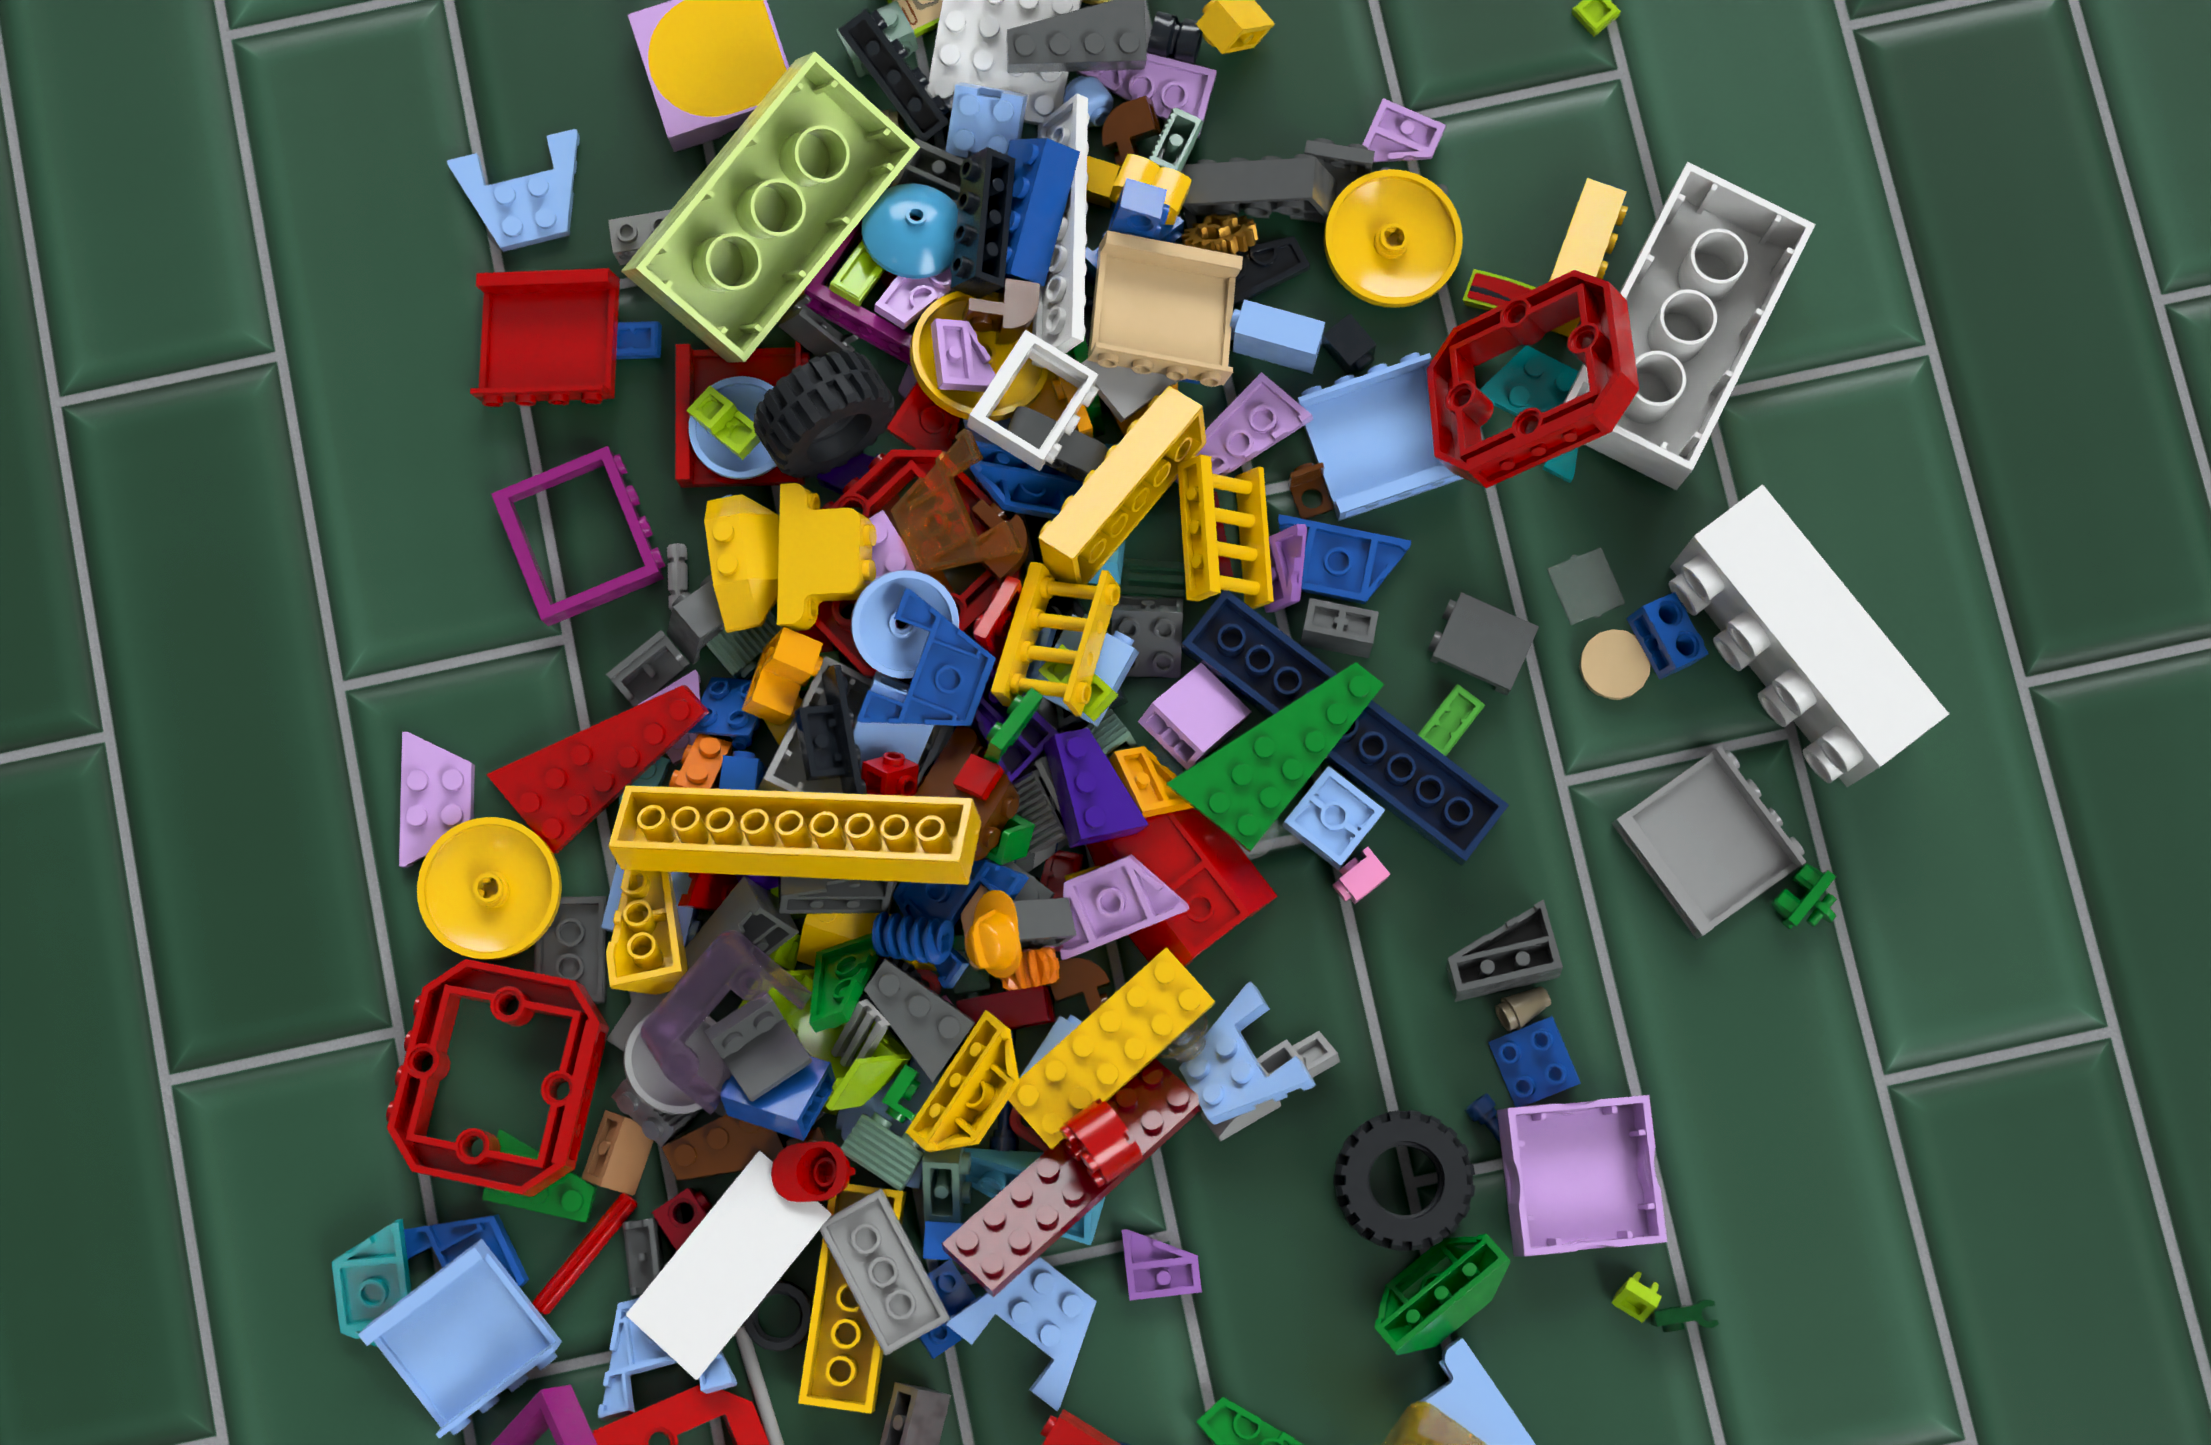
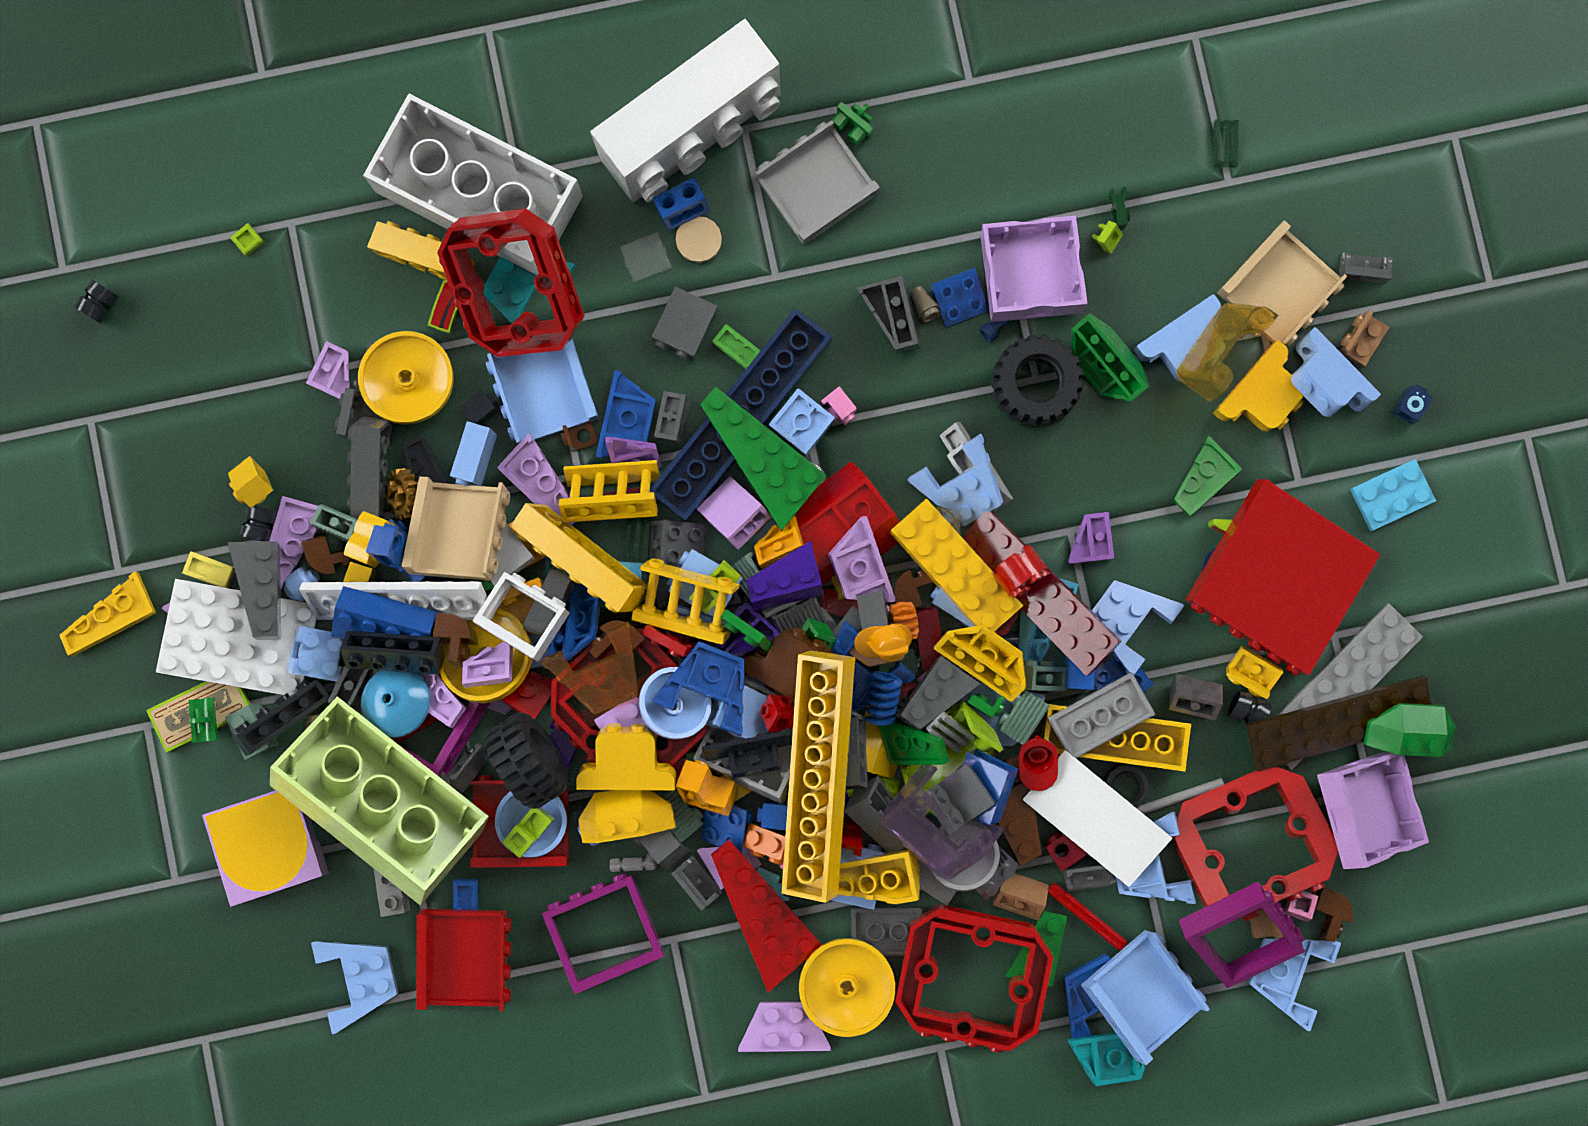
camera: 95 degrees left, 5 degrees up
(856, 276) = (427, 740): lime tile -> none
(978, 777) = (779, 653): red tile -> none

